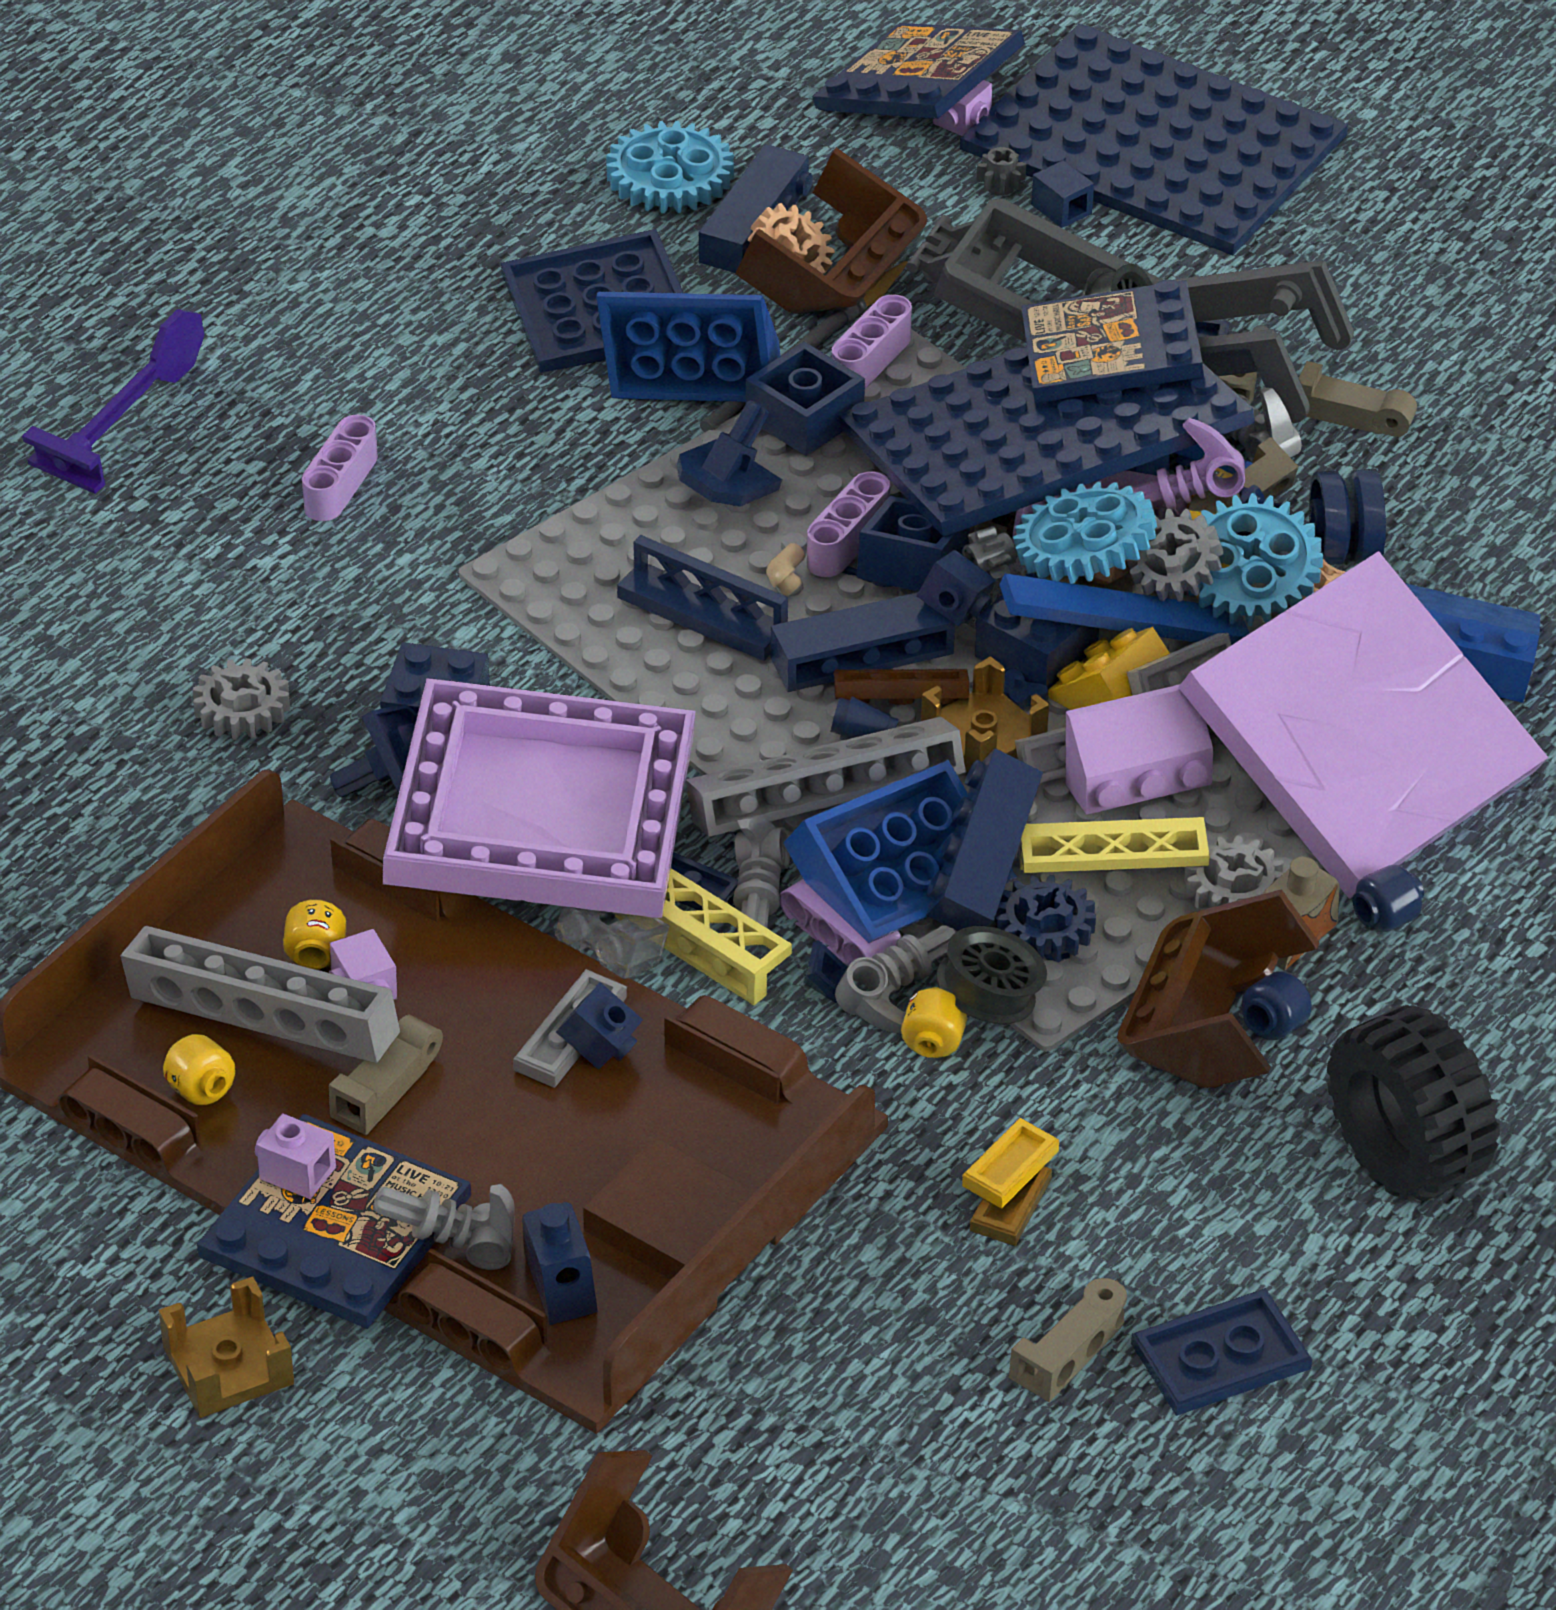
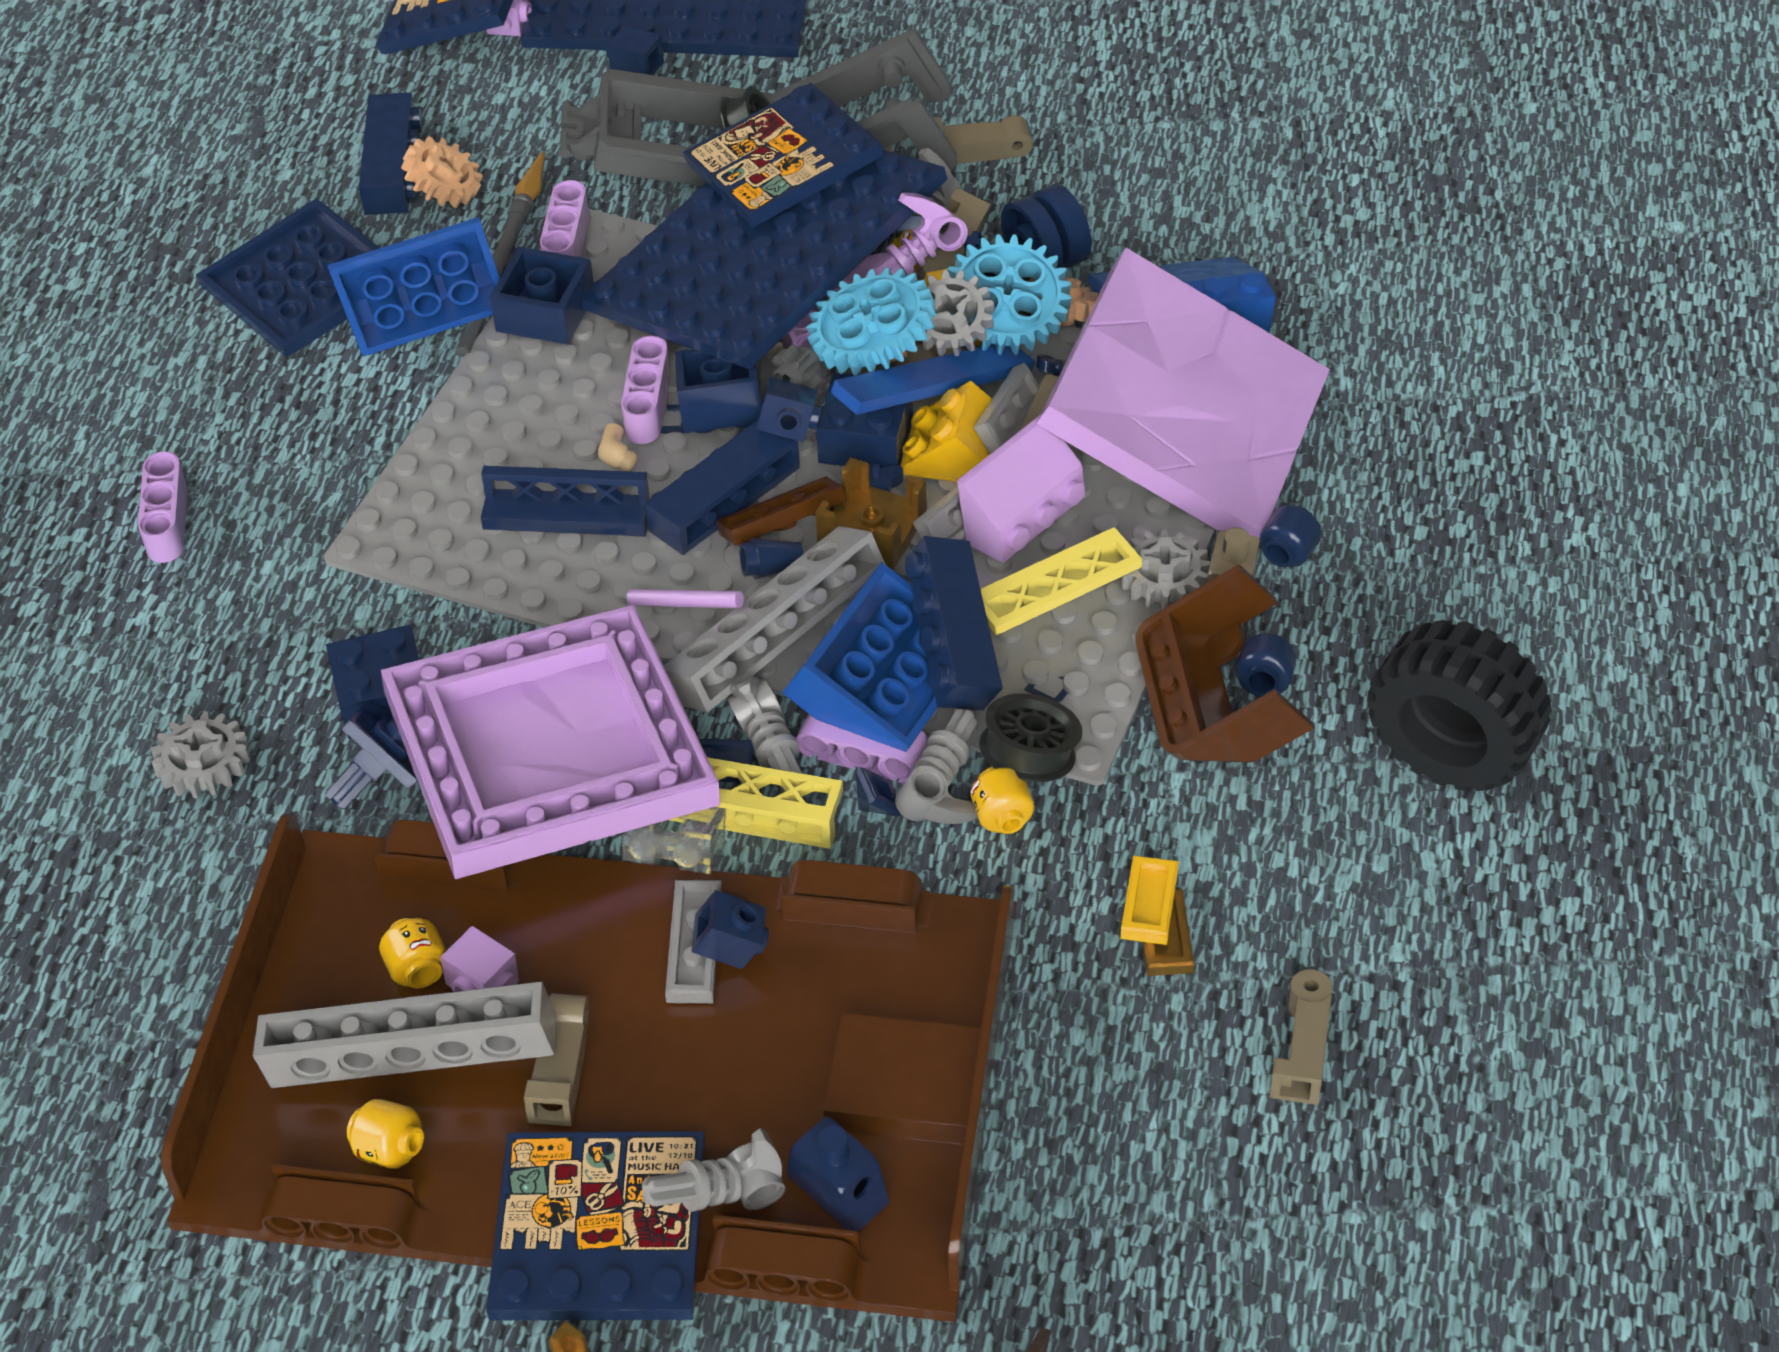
camera: 25 degrees left, 5 degrees up
(295, 1156) = (534, 1181): lavender brick -> none
(670, 166) = (293, 142): medium azure gear -> none
(726, 466) = (512, 380): dark blue piece -> none
(754, 727) = (685, 598): none -> lavender bar
(875, 224) = (497, 128): reddish brown windscreen -> none
(1001, 171) = (573, 52): dark grey gear -> none
(1048, 916) = (1057, 662): dark blue gear -> none
(1221, 1351) = (1426, 993): dark blue tile -> none

